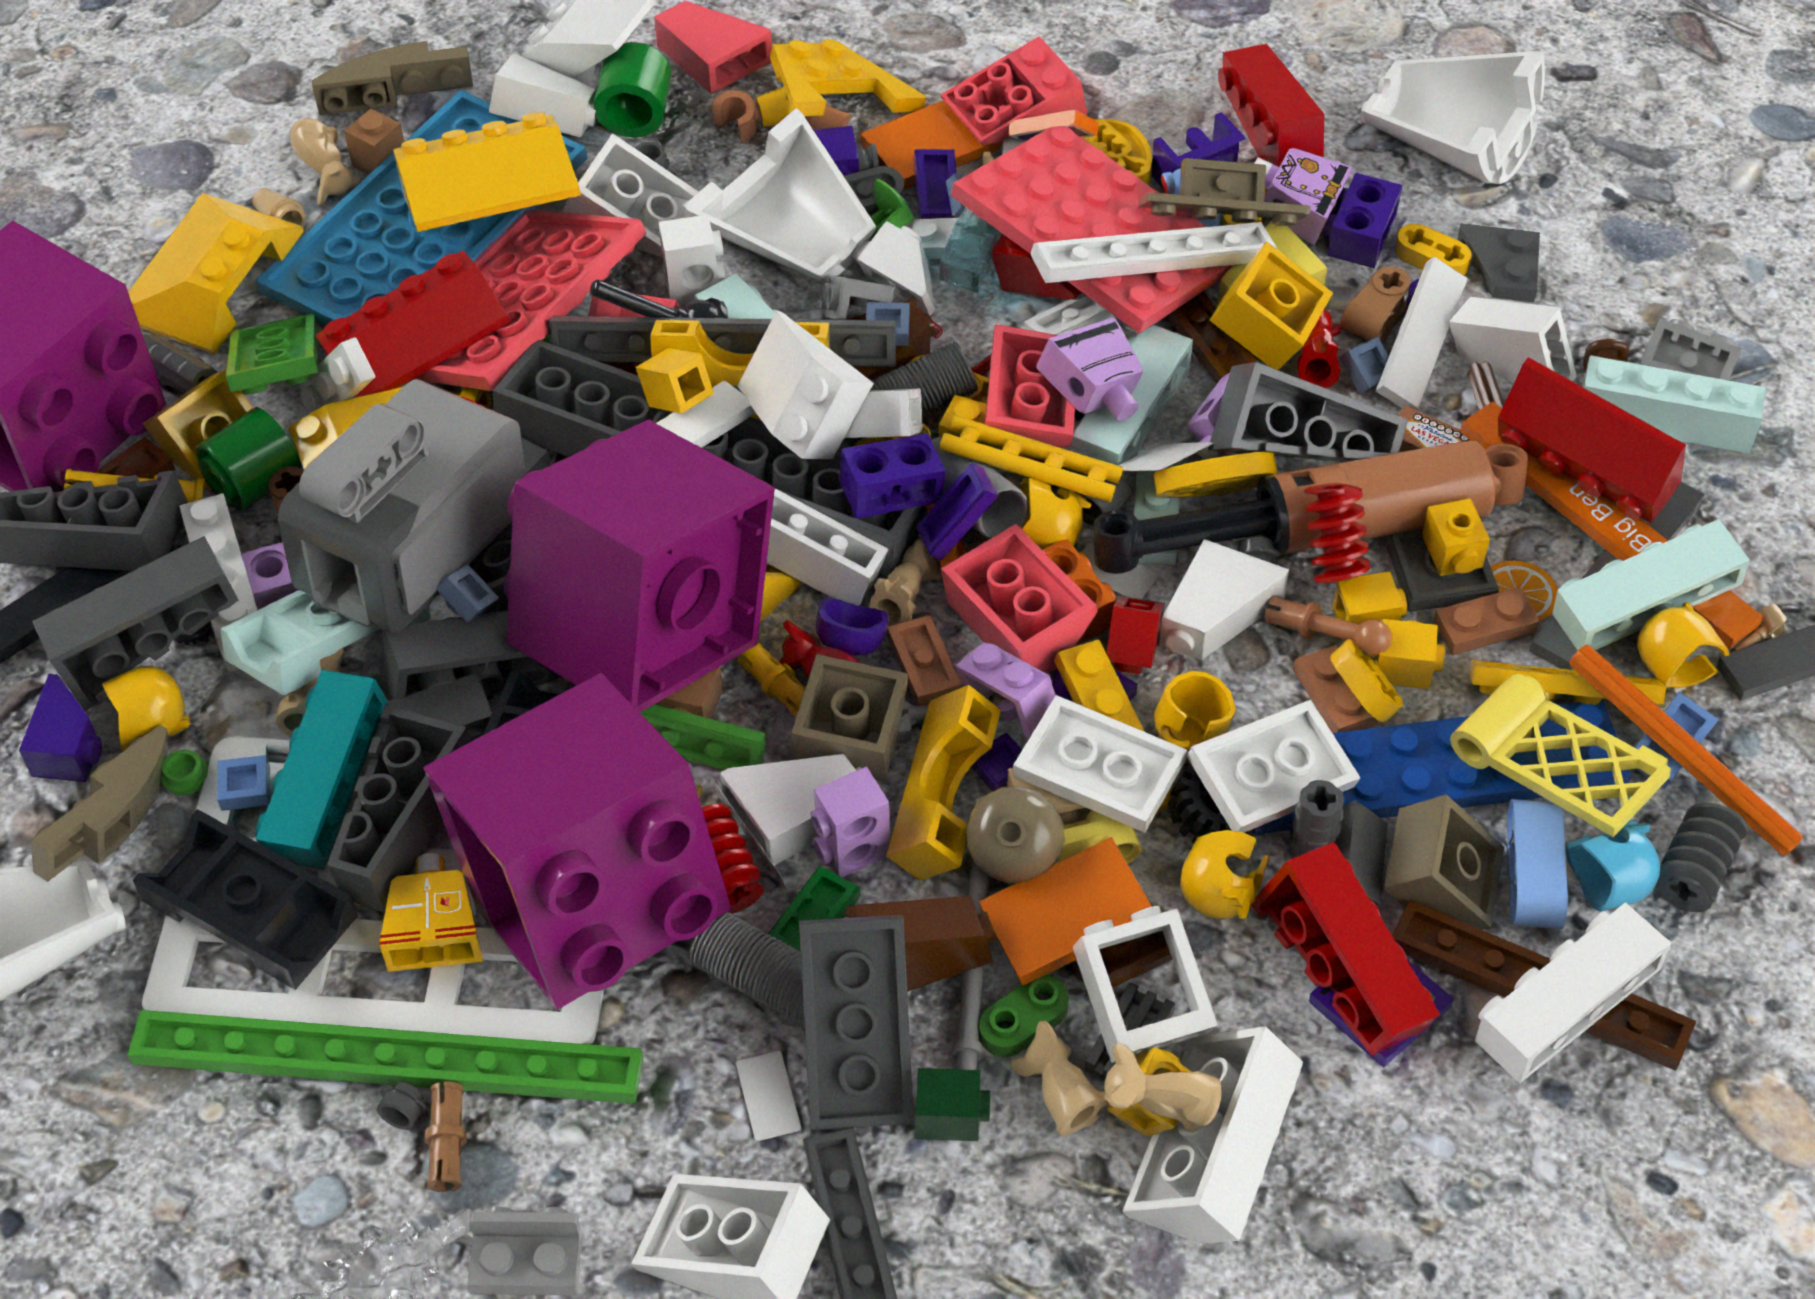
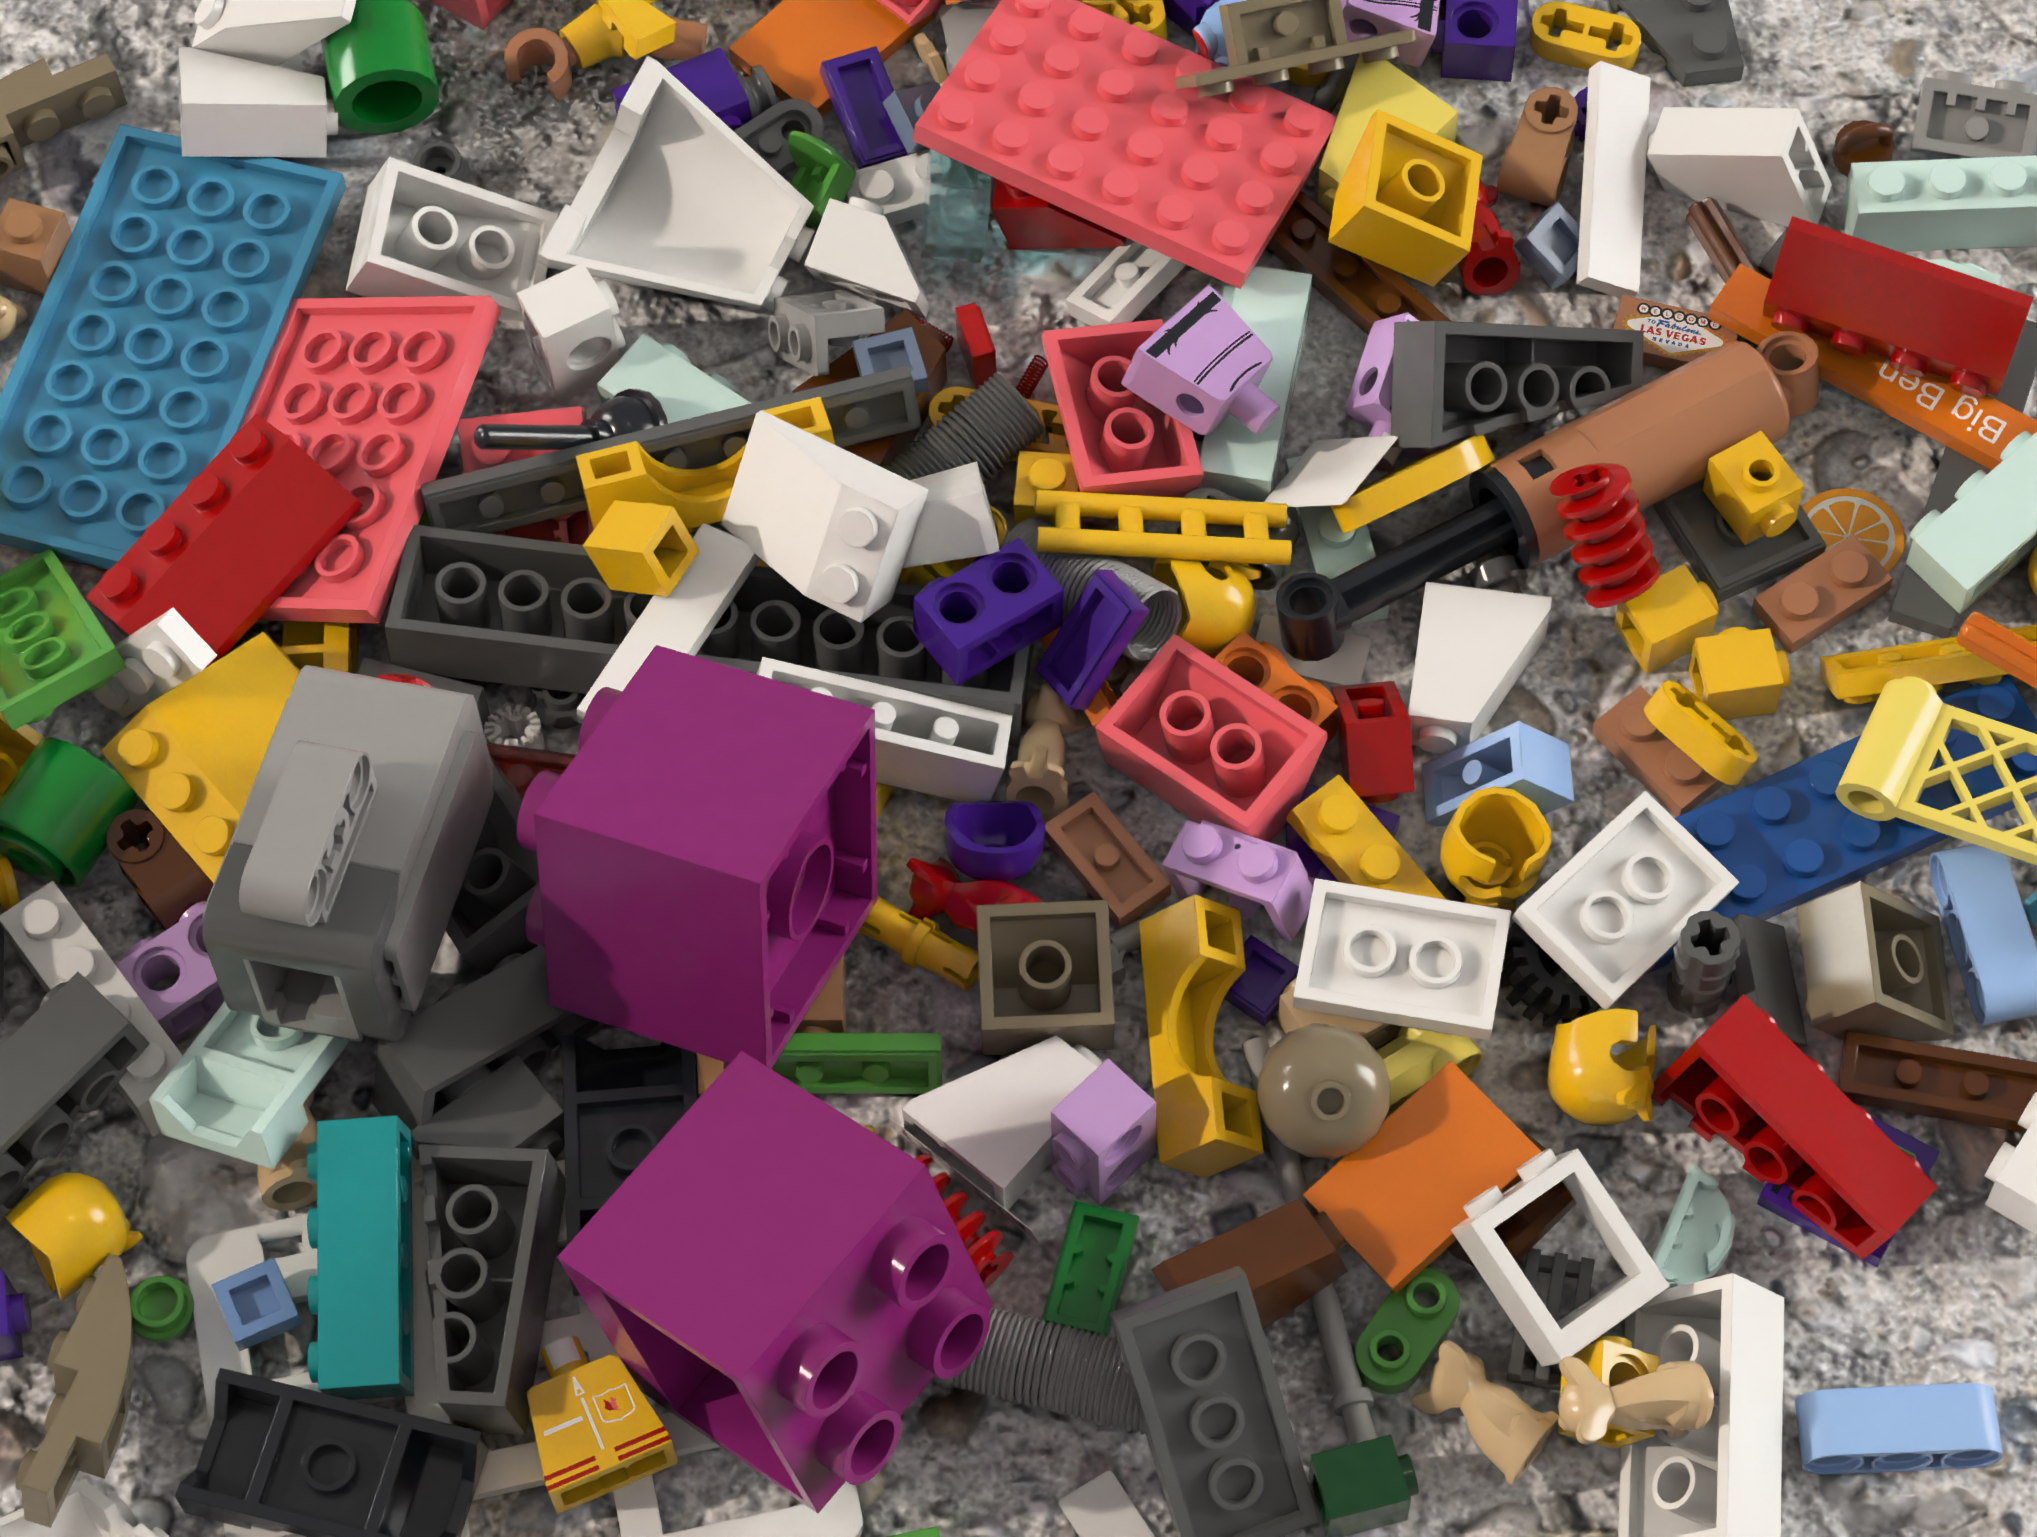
camera: 15 degrees left, 10 degrees up
(467, 593) = (473, 951): sand blue plate -> none
(485, 171) = (230, 271): yellow slope -> none
(954, 324) = (975, 343): none -> red tile
(1148, 252) = (1222, 162): white tile -> none
(1230, 661) = (1509, 758): none -> light blue slope
(1255, 1003) = (1696, 1233): none -> light aqua plate
(1360, 1176) = (1898, 1428): none -> light blue beam
(1370, 636) = (1689, 669): nougat pin -> none

